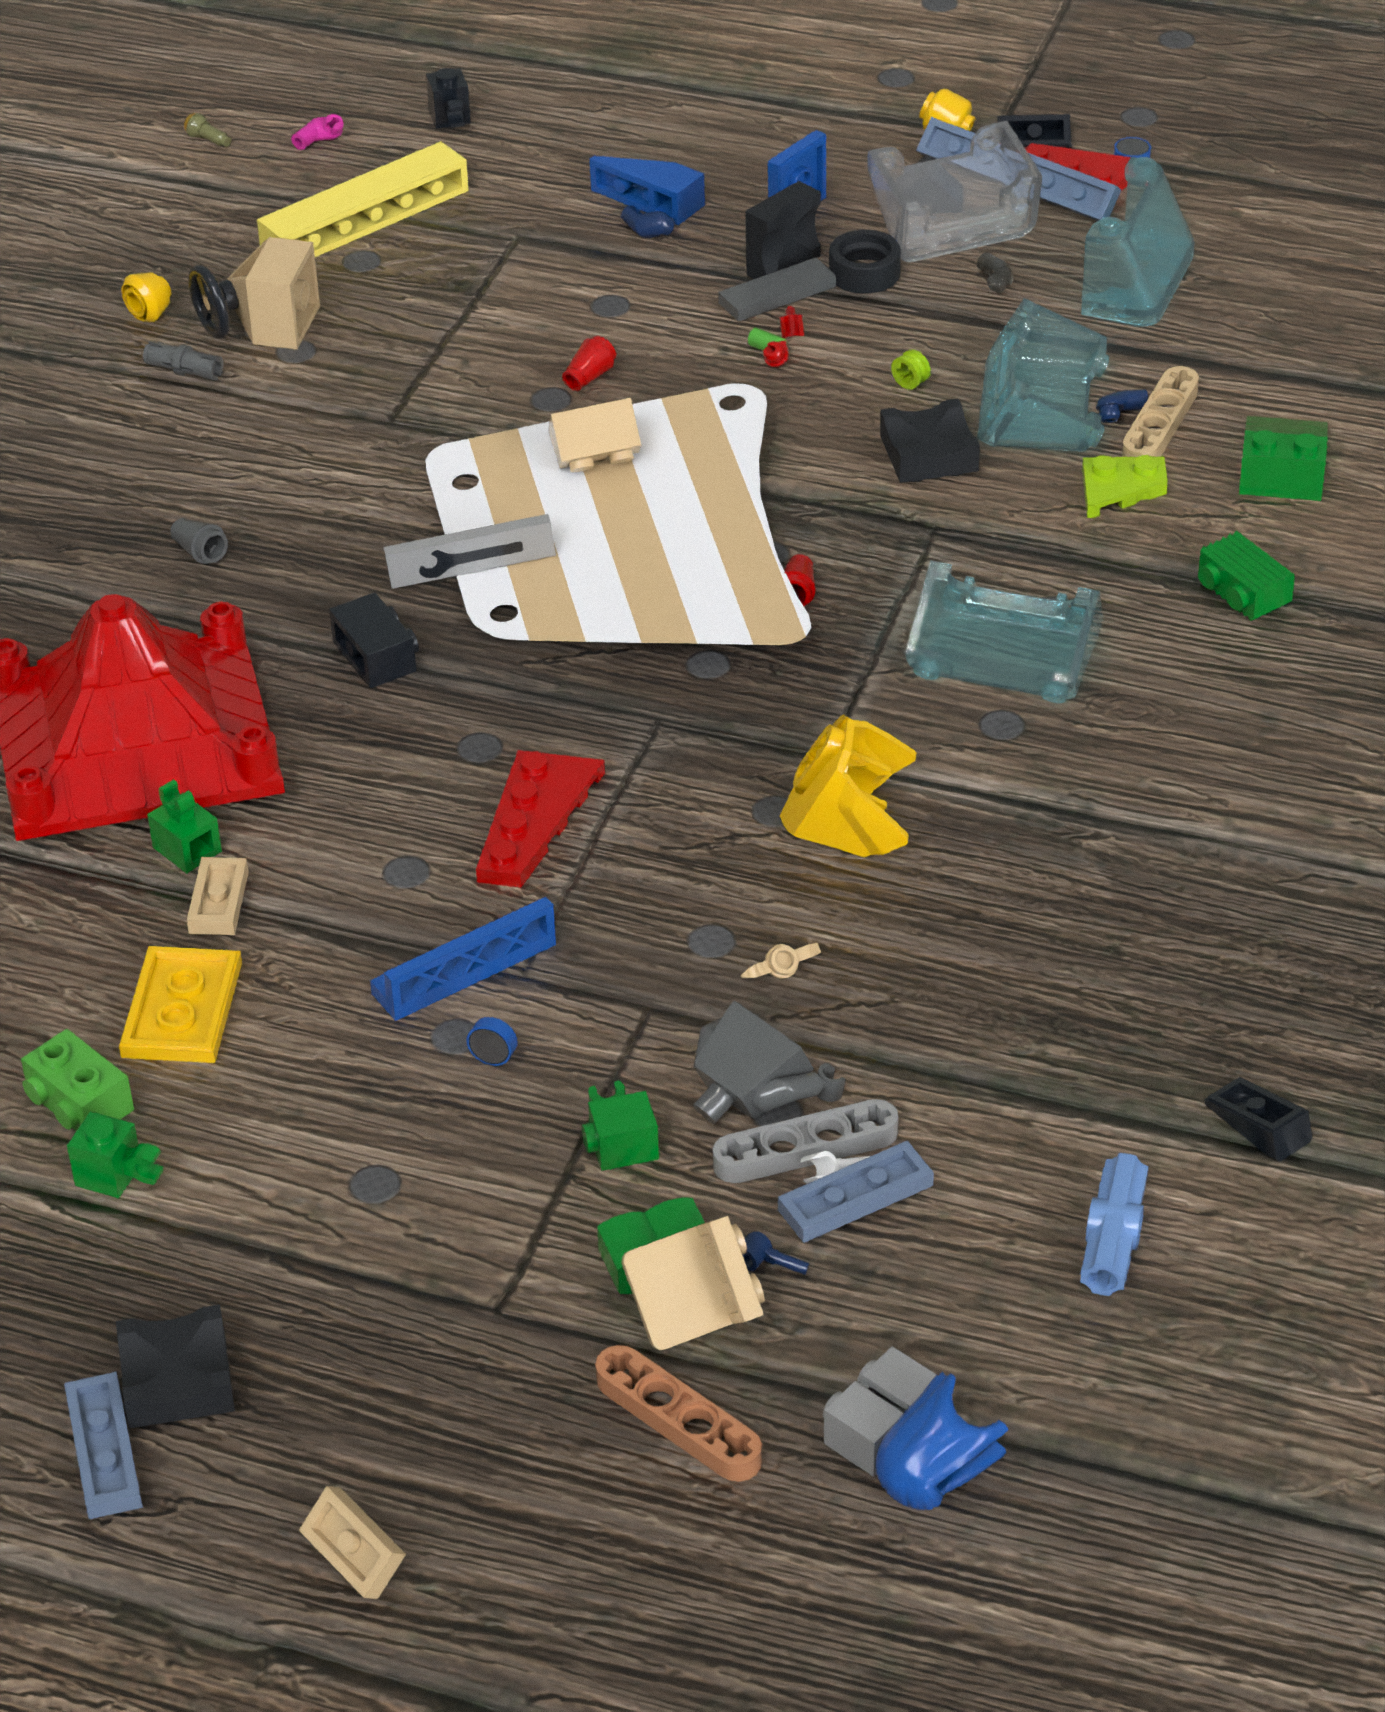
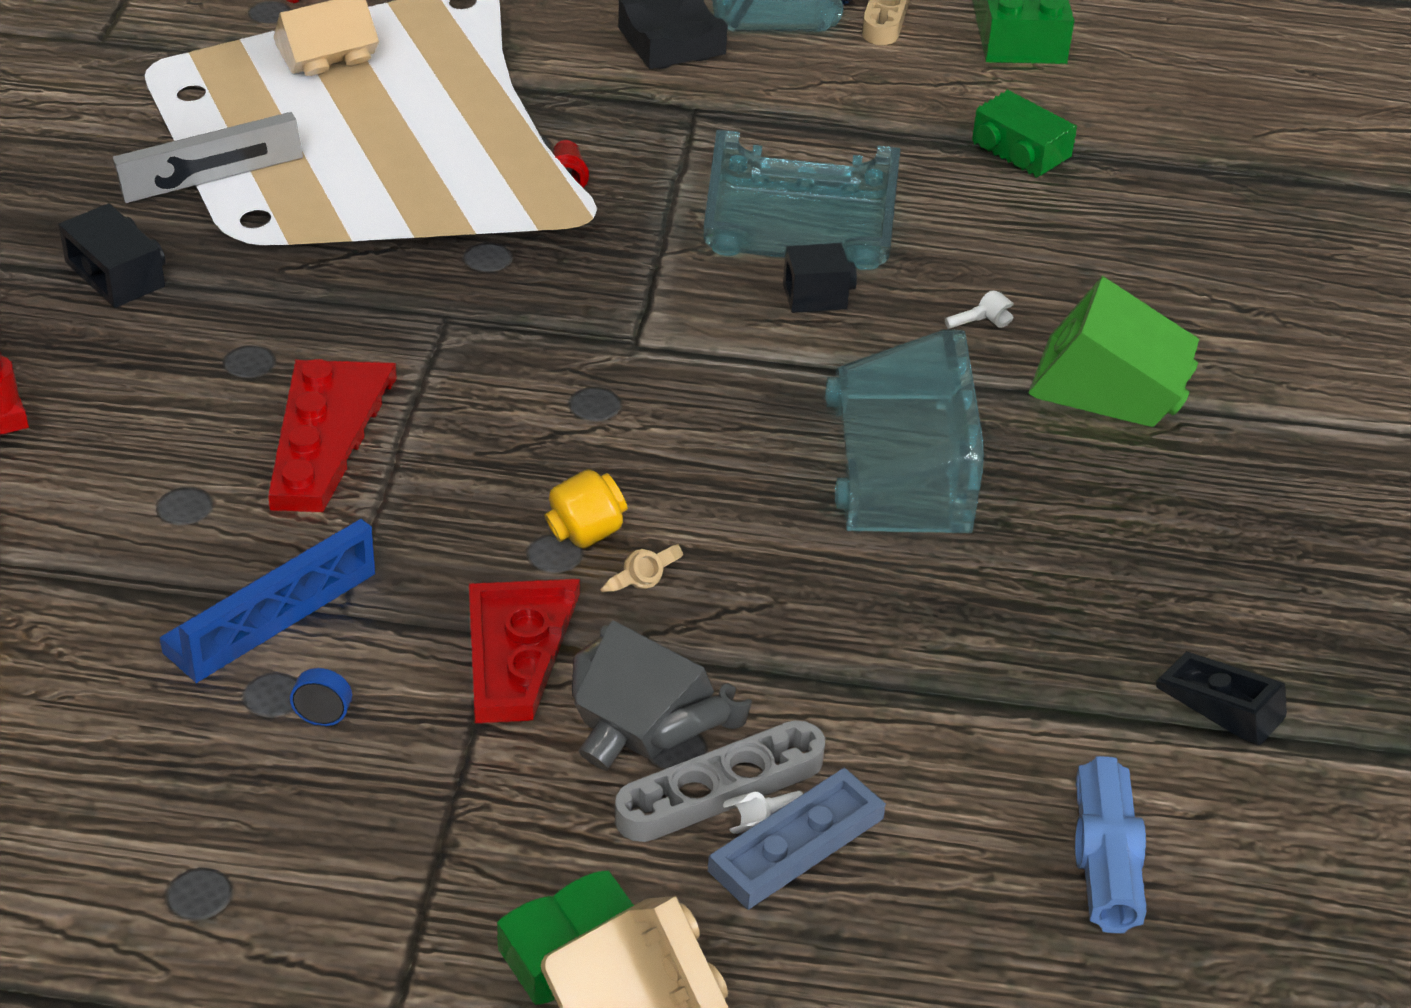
camera: 15 degrees left, 0 degrees up
(620, 1128) = (498, 788): green brick -> none
(659, 1013) = (516, 643): none -> red wing
(741, 905) = (586, 508): none -> yellow head
(760, 1249) = (717, 932): dark blue hand -> none
(835, 785) = (662, 375): yellow piece -> none
(1004, 708) = (818, 277): none -> black brick
(1038, 866) = (910, 437): none -> clear light blue windscreen
(1122, 481) = (870, 53): lime wing -> none
(1161, 748) = (991, 306): none -> white hand
(1260, 809) = (1117, 359): none -> bright green slope

